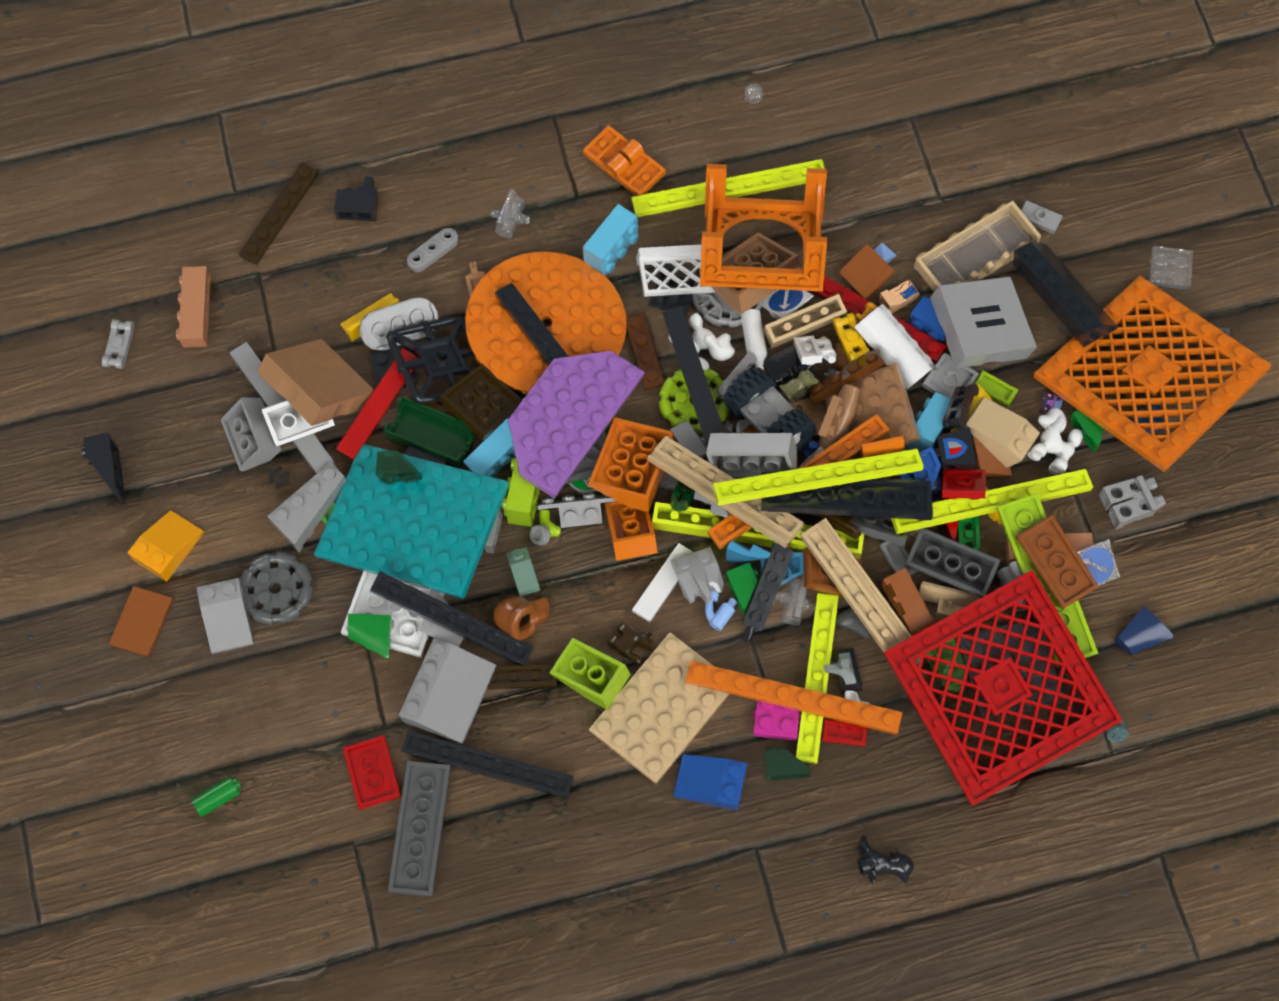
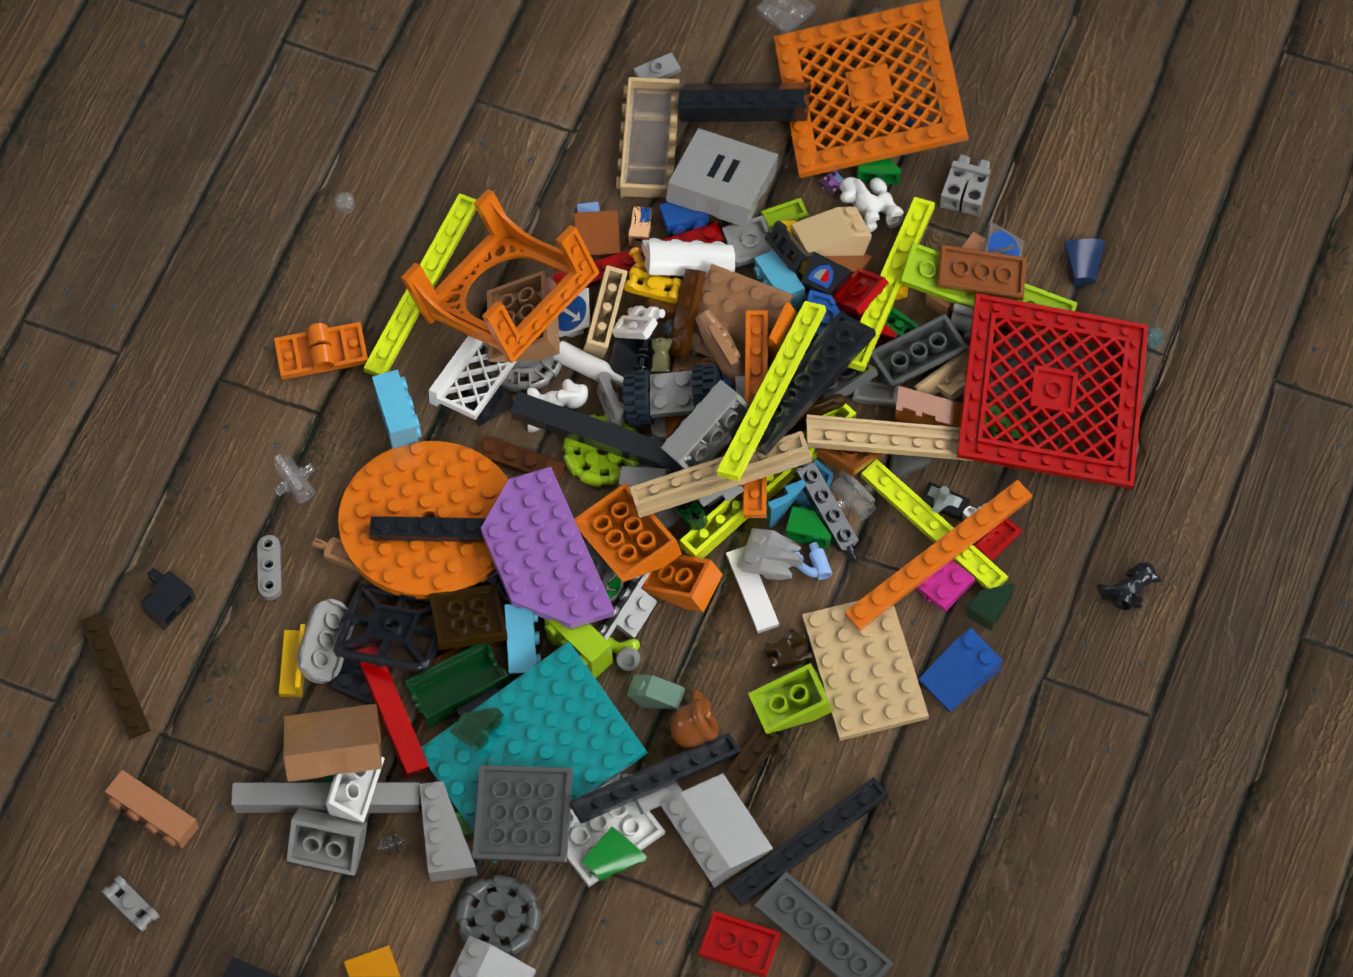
camera: 55 degrees left, 5 degrees down
(355, 547) = (523, 814): none -> dark grey plate

